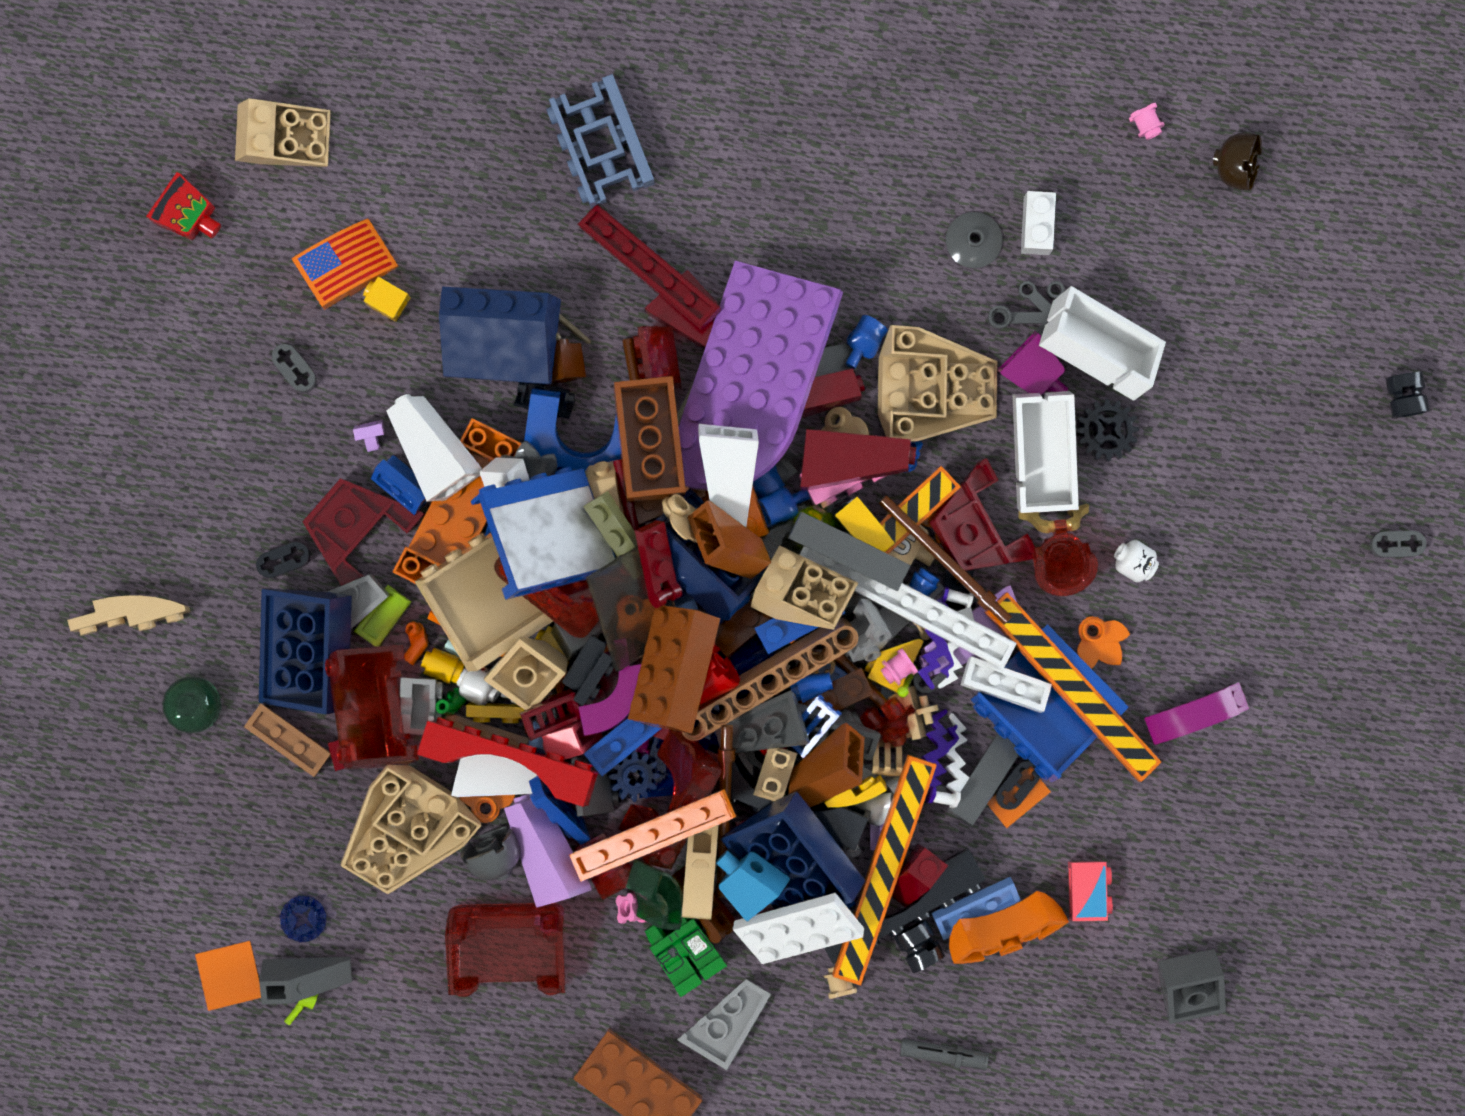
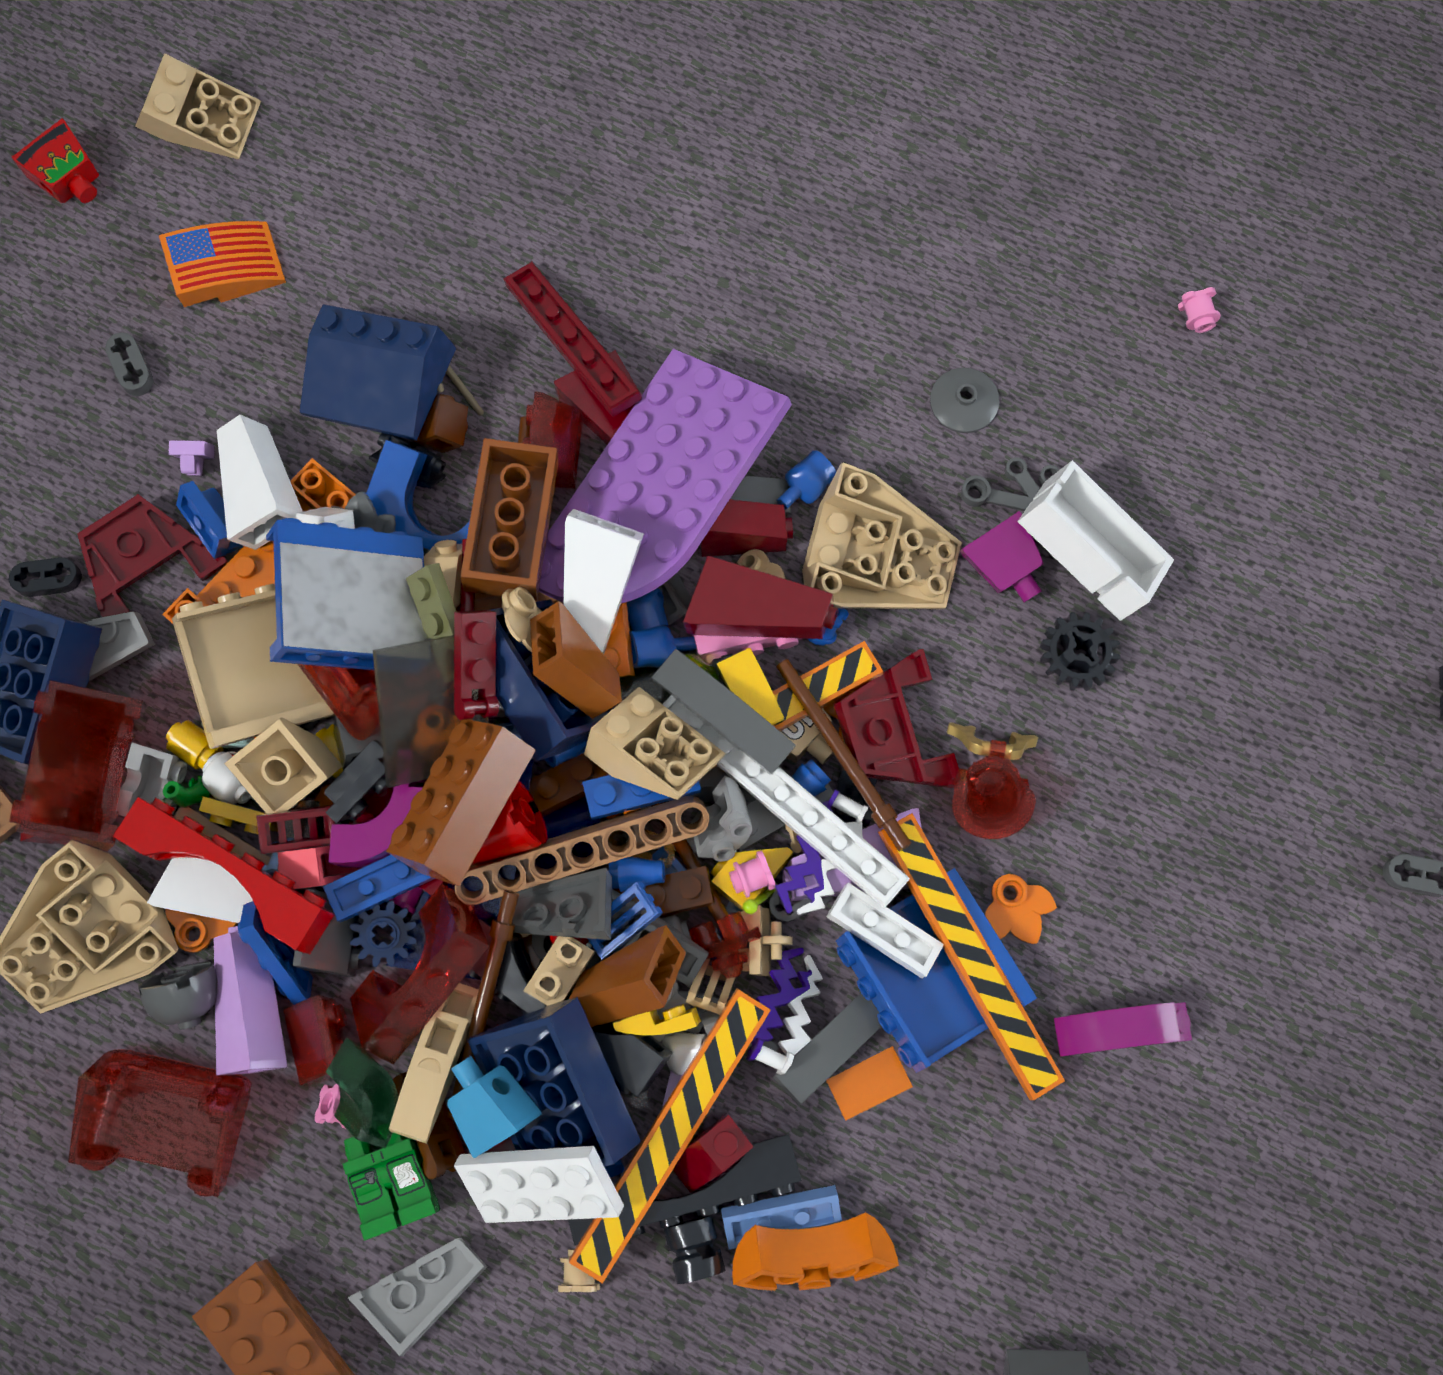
camera: 20 degrees right, 10 degrees down
(383, 618) = (143, 671): lime tile -> none
(386, 298) = (258, 309): yellow brick -> none
(418, 641) = (175, 709): orange arm -> none
(620, 134) = (580, 191): sand blue fence -> none
(652, 835) = (377, 1010): tile -> none
(1011, 781) = (865, 1059): black beam -> none
(1038, 223) = (1046, 393): white brick -> none
(1045, 452) = (998, 654): white piece -> none
(1089, 891) = (935, 1230): coral brick -> none
(1136, 561) = (1083, 817): white head -> none
(1238, 160) = (1302, 374): dark brown cylinder -> none

